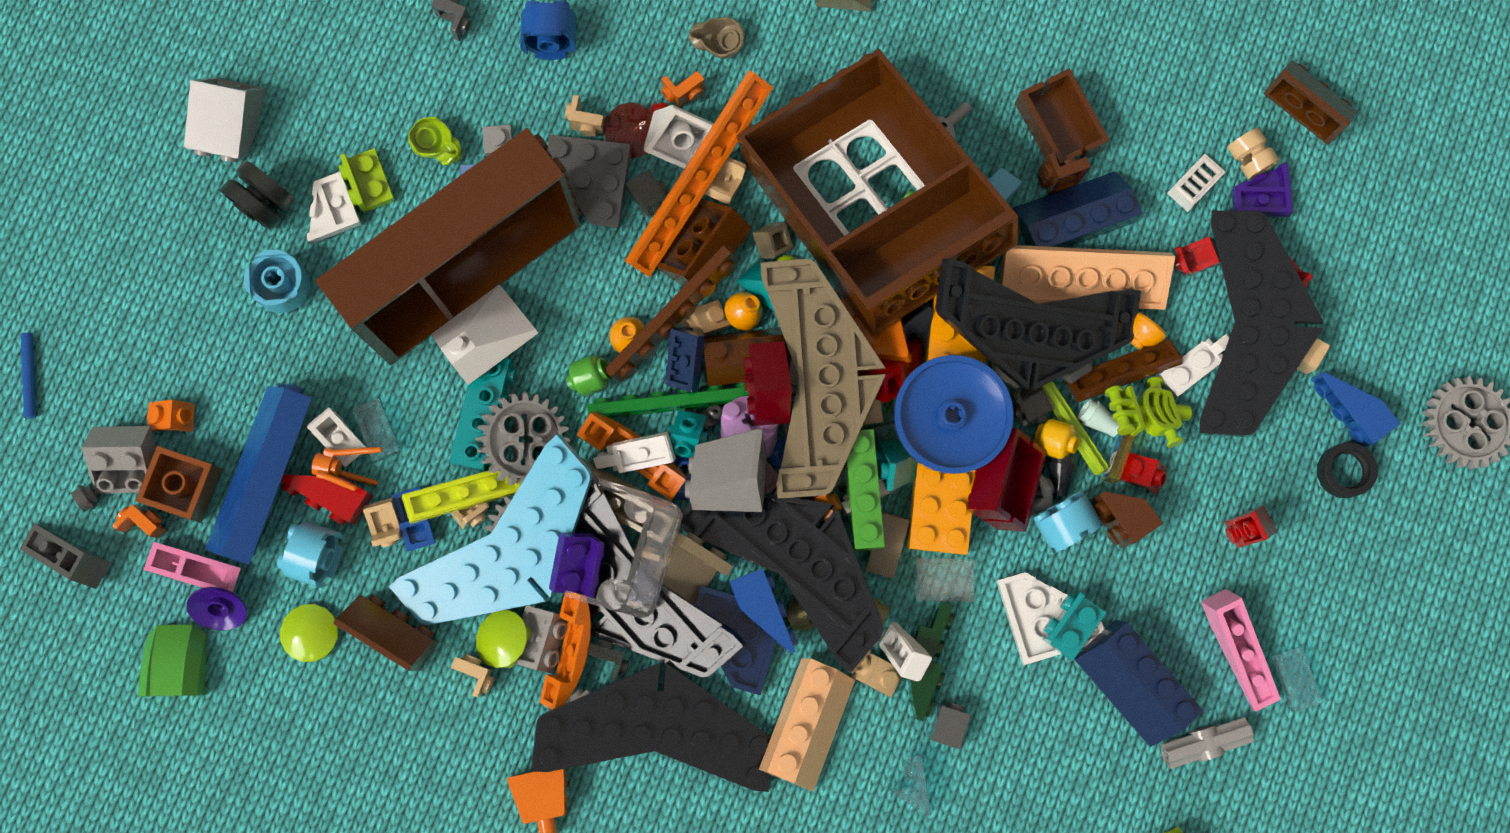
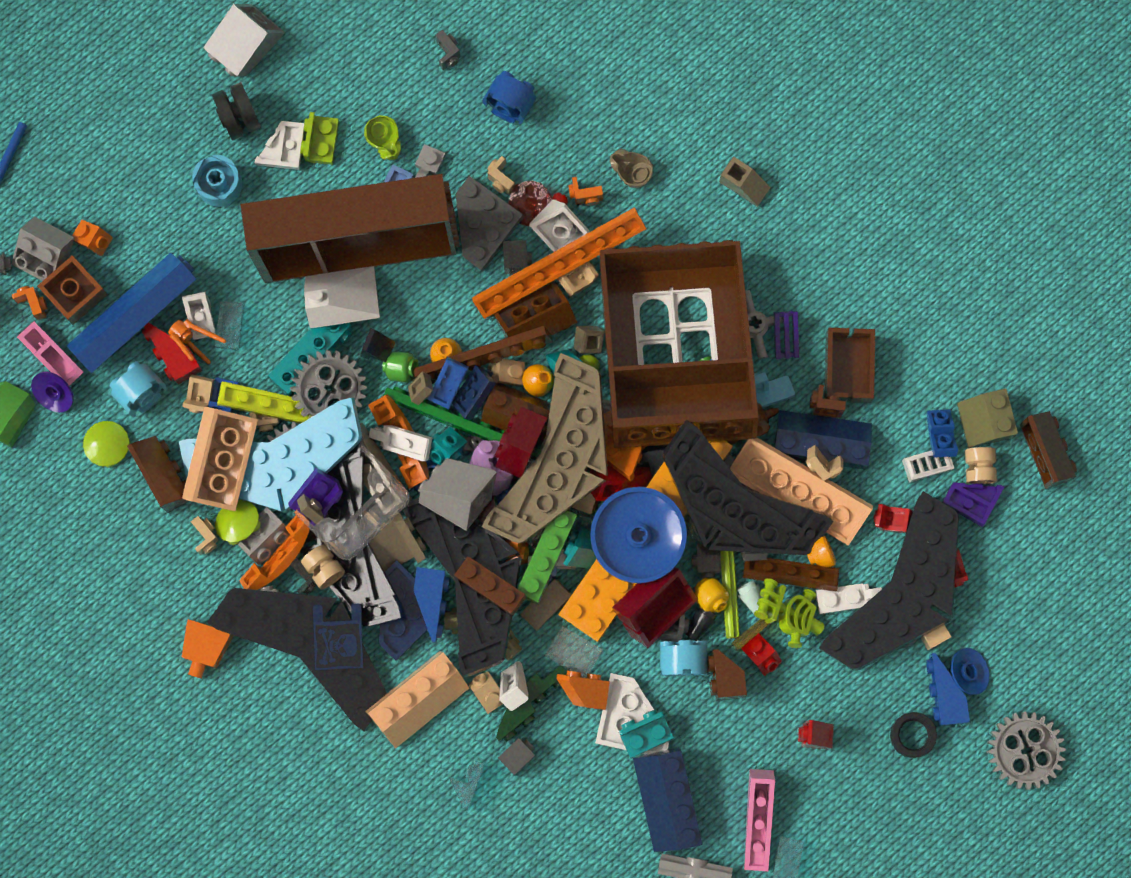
camera: 35 degrees right, 0 degrees up
(446, 581) = (220, 458): none -> light nougat slope
(551, 366) = (377, 346): none -> black slope
(579, 581) = (310, 508): none -> dark tan plate
(624, 385) = (420, 388): none -> dark tan plate
(625, 637) = (325, 569): none -> tan wheel
(651, 363) = (448, 383): none -> blue plate
(687, 711) = (338, 642): none -> flag
(823, 557) = (490, 586): none -> reddish brown plate
(983, 615) = (584, 691): none -> orange slope
(986, 120) = (795, 334): none -> dark purple tile
(1105, 239) = (818, 463): none -> tan bracket
(1191, 142) = (942, 433): none -> blue slope
(1231, 102) = (987, 418): none -> olive slope
(1366, 371) = (970, 671): none -> blue dish

